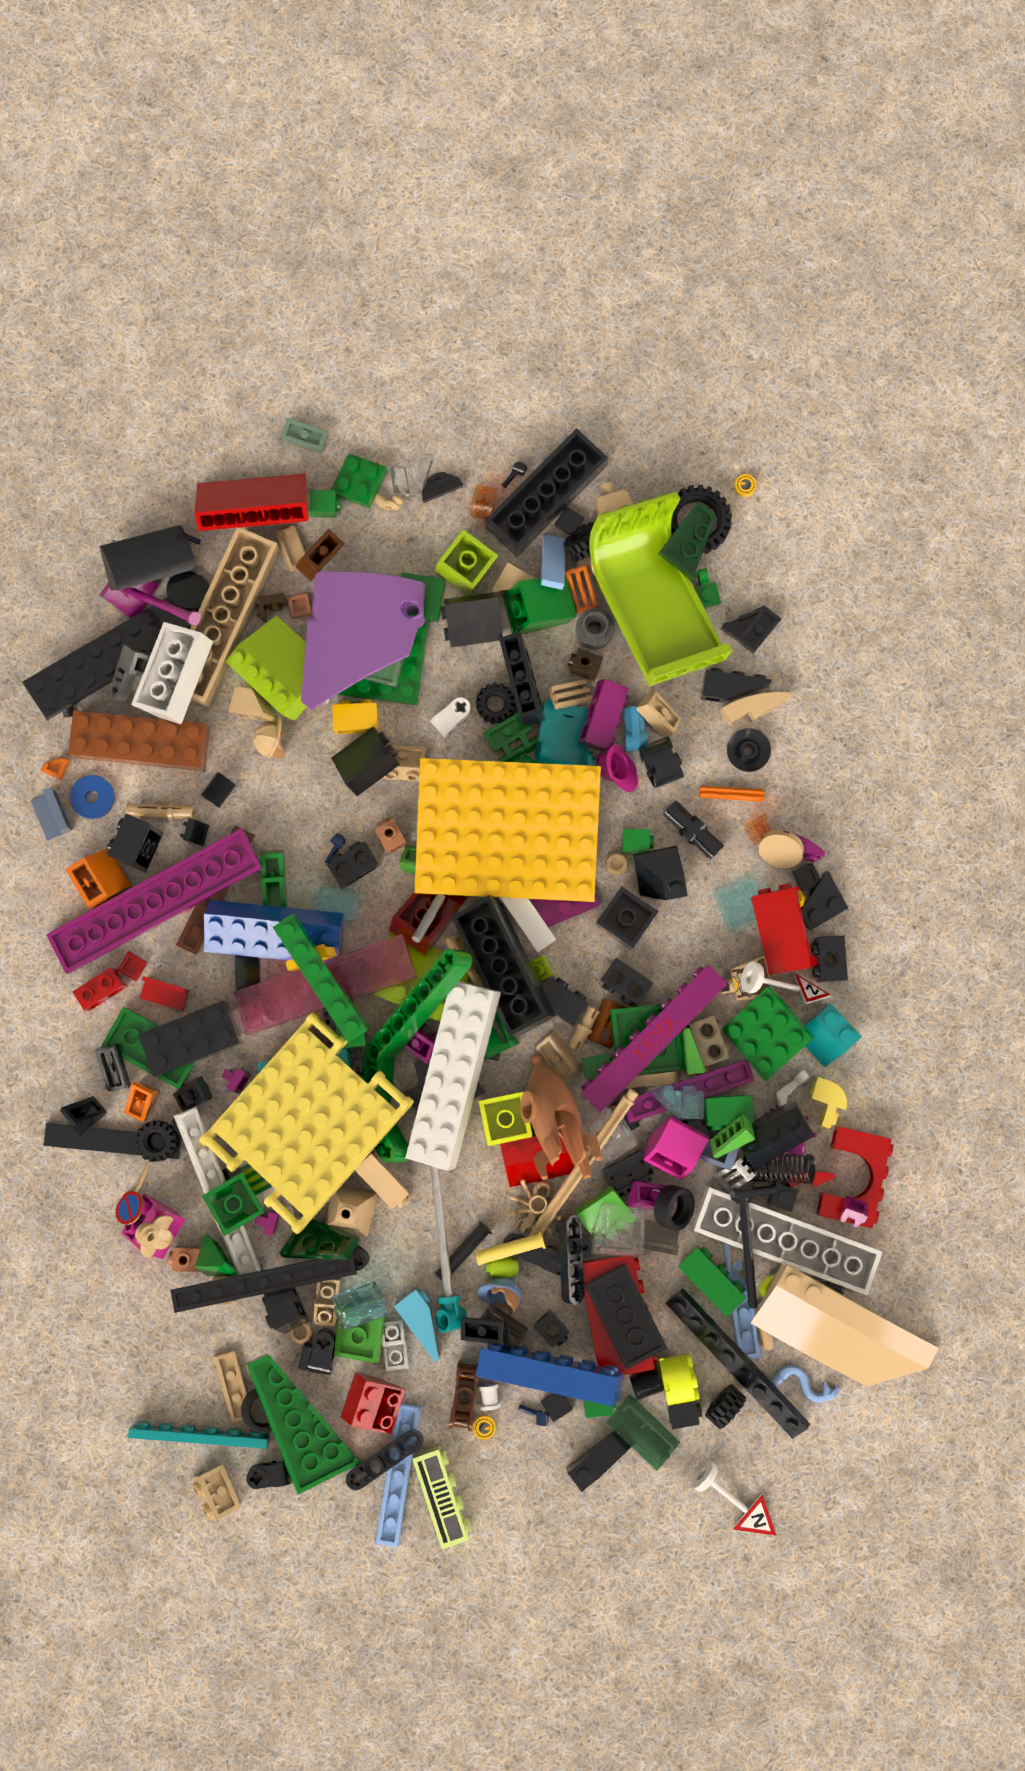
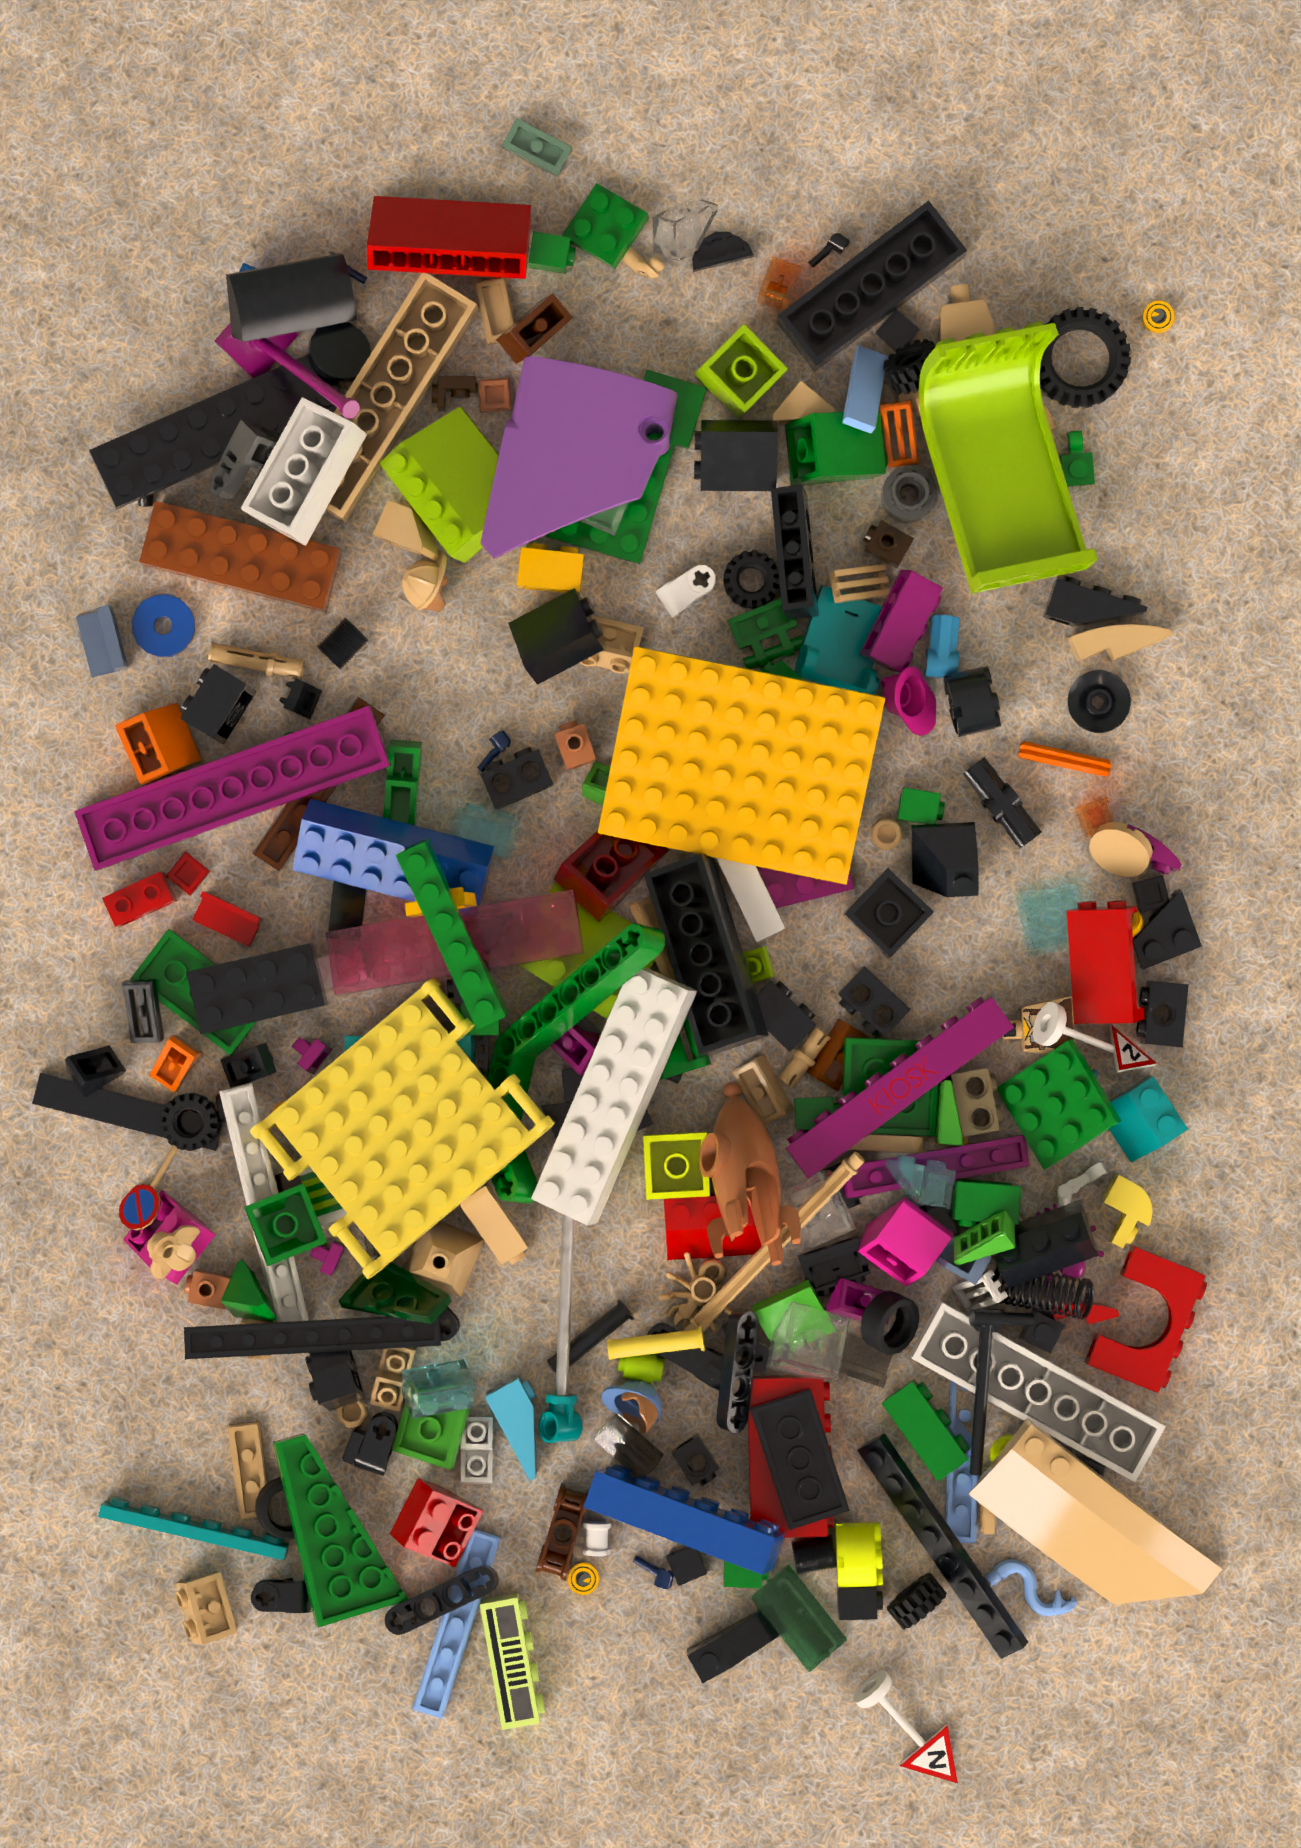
camera: 10 degrees right, 5 degrees up
(56, 767) = (118, 575): orange tile -> none
(428, 917) = (611, 871): light grey piece -> none
(484, 1330) = (603, 1448): black slope -> none
(659, 714) = (980, 631): tan slope -> none
(688, 541) = (1060, 391): dark green wing -> none
(752, 627) = (1133, 526): black wing -> none
(855, 1210) = (1137, 1364): magenta tile -> none

